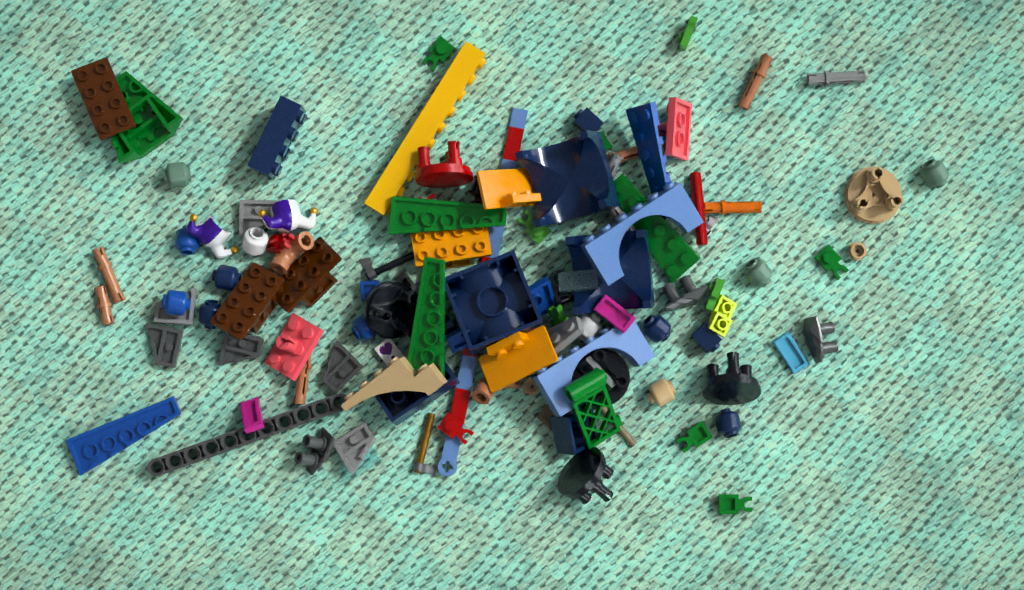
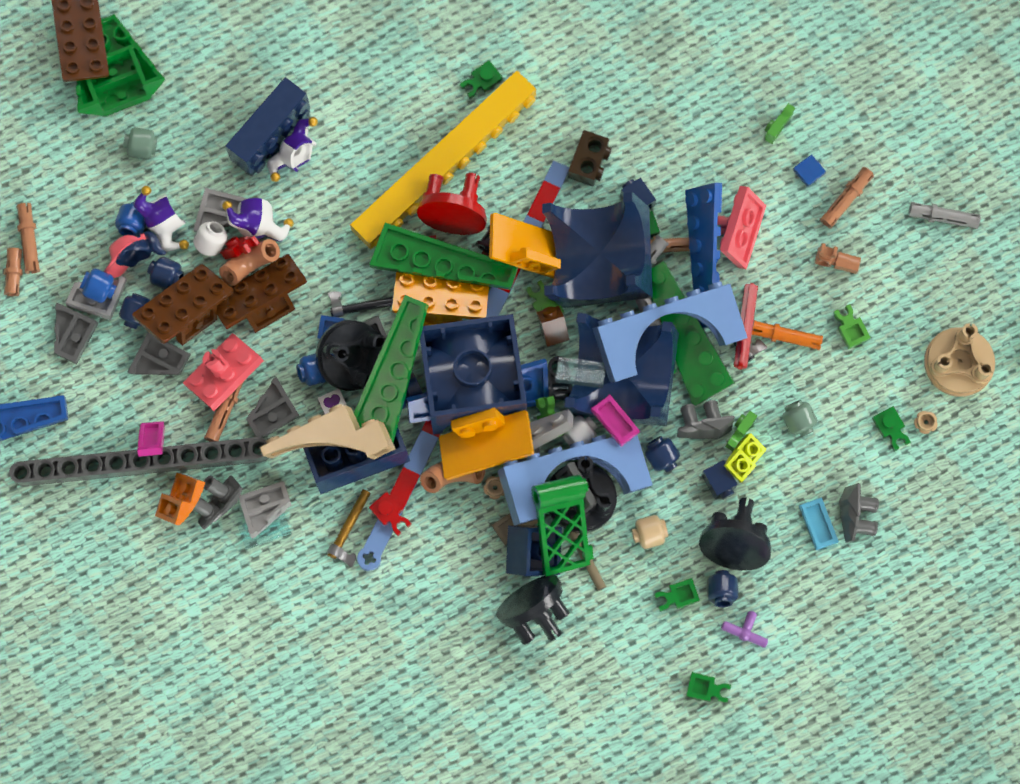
camera: 15 degrees right, 10 degrees down
(193, 265) = (130, 250): none -> hair
(289, 458) = (181, 501): none -> orange slope
(302, 151) = (294, 150): none -> piece
(537, 99) = (585, 157): none -> dark brown brick
(546, 246) = (553, 325): none -> reddish brown brick
(720, 66) = (809, 170): none -> blue tile
(753, 453) = (745, 632): none -> medium lavender piece
(762, 136) = (828, 256): none -> nougat bar
(784, 190) = (852, 329): none -> bright green plate

